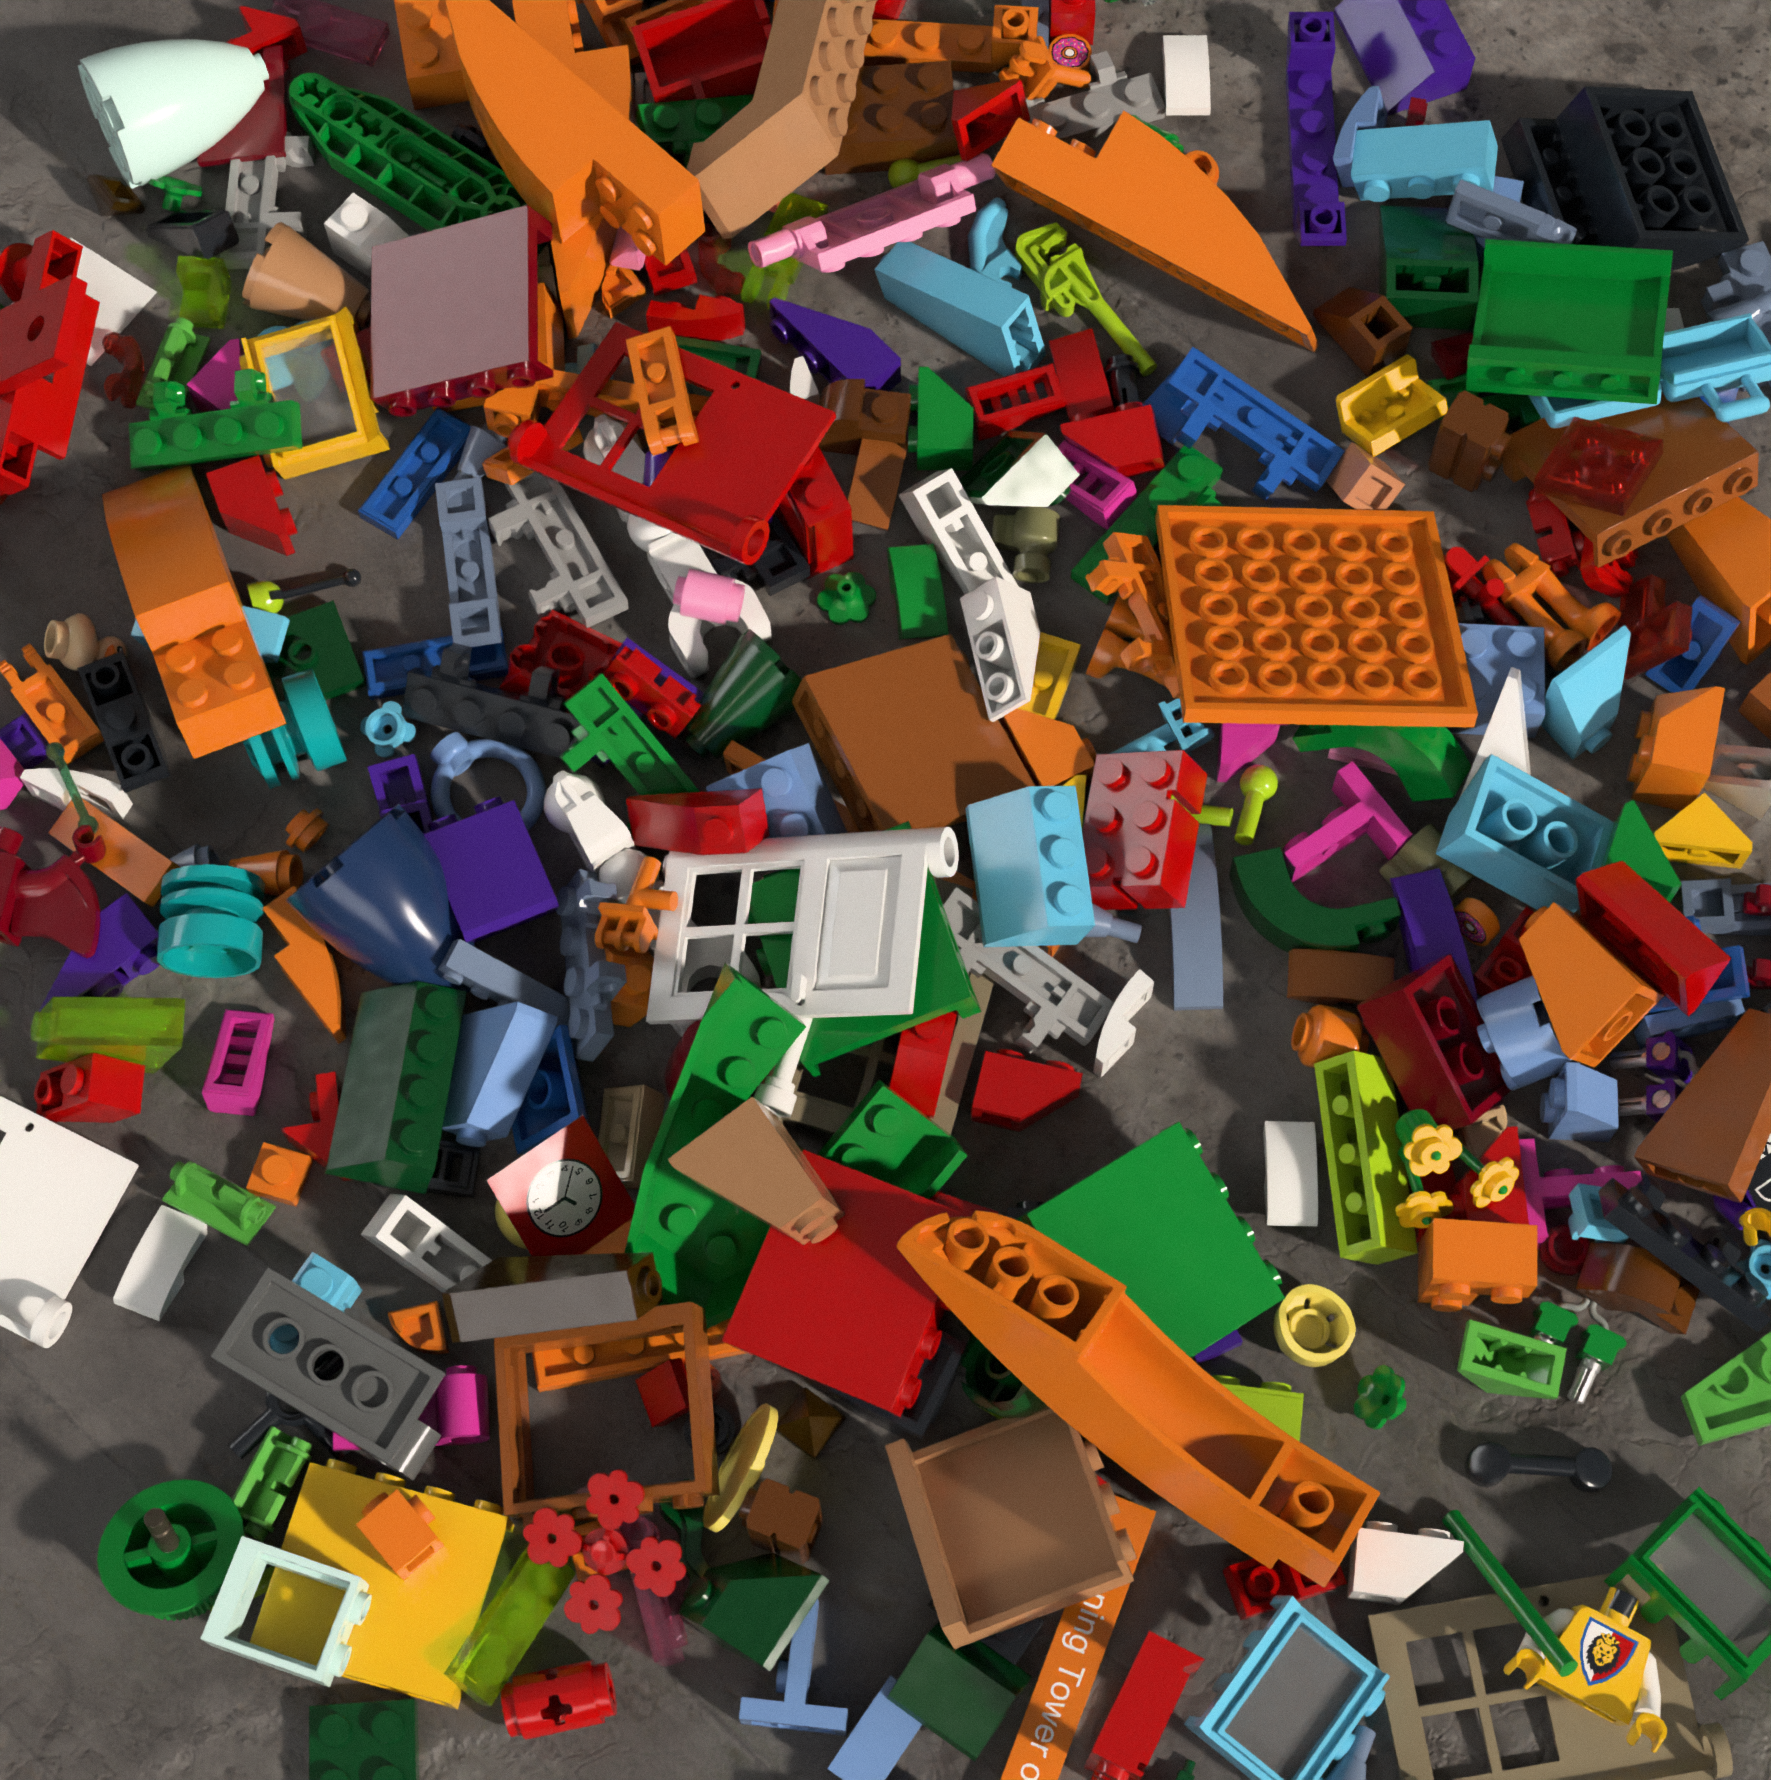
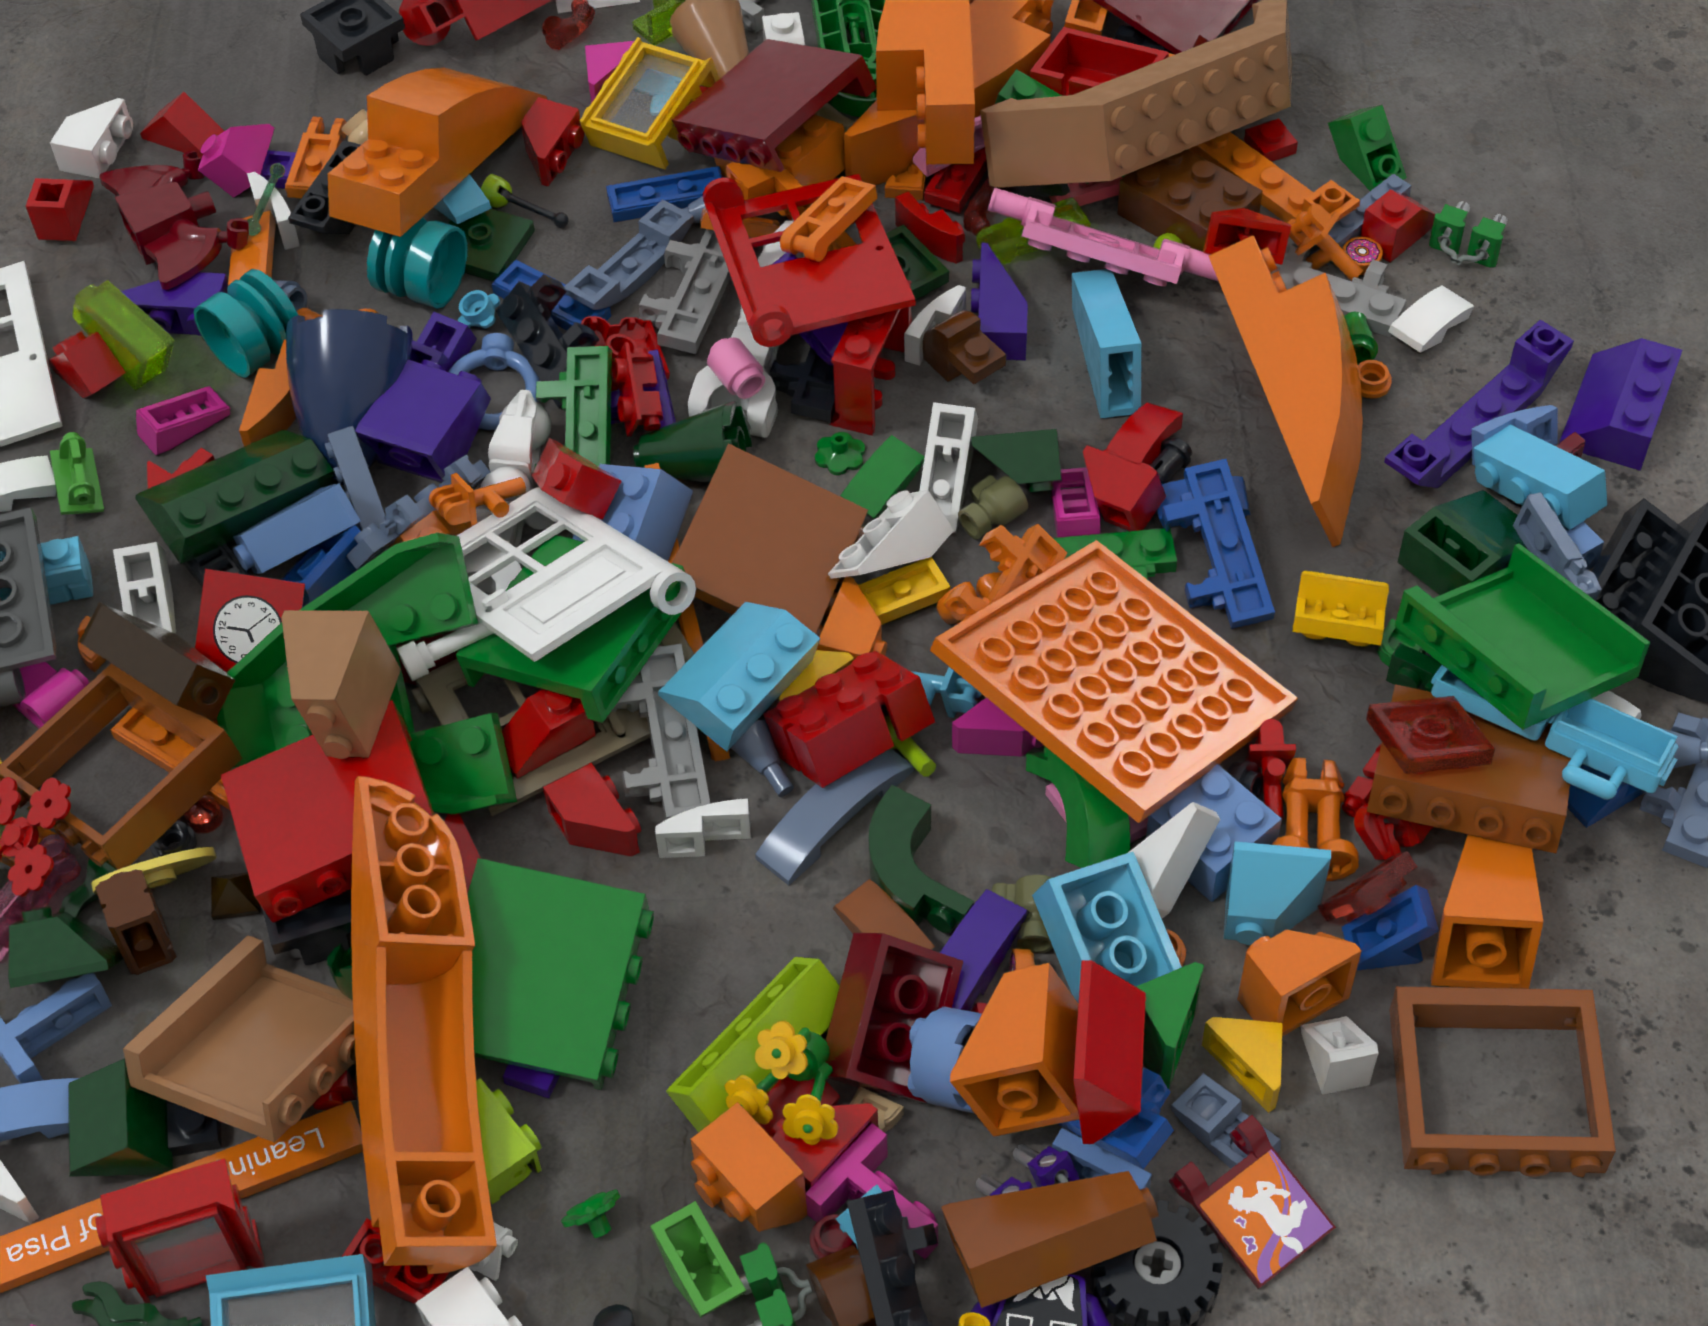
camera: 45 degrees right, 15 degrees down
(175, 360) = (608, 30): bright green hinge -> none
(182, 438) = (558, 78): green hinge -> none
(279, 1174) = (121, 494): orange plate -> none
(876, 482) = (942, 385): dark orange slope -> none
(944, 425) = (1012, 396): green slope -> none
(986, 247) = (1172, 324): medium azure piece -> none
(1006, 419) = (1061, 403): red slope -> none
(1071, 282) = (1204, 380): lime piece -> none
(1258, 785) = (975, 770): lime bar -> none
(1290, 1173) = (701, 1018): white slope -> none
(1308, 1330) = (599, 1126): light yellow helmet -> none
(1326, 1034) = (827, 943): orange head -> none
(1364, 480) = (1269, 641): nougat panel -> none
(1365, 328) = (1378, 550): reddish brown slope -> none
(1365, 814) = (992, 836): dark pink bracket -> none
(1470, 442) = (1366, 664): reddish brown brick -> none
(1580, 1105) = (950, 1145): medium blue slope -> none

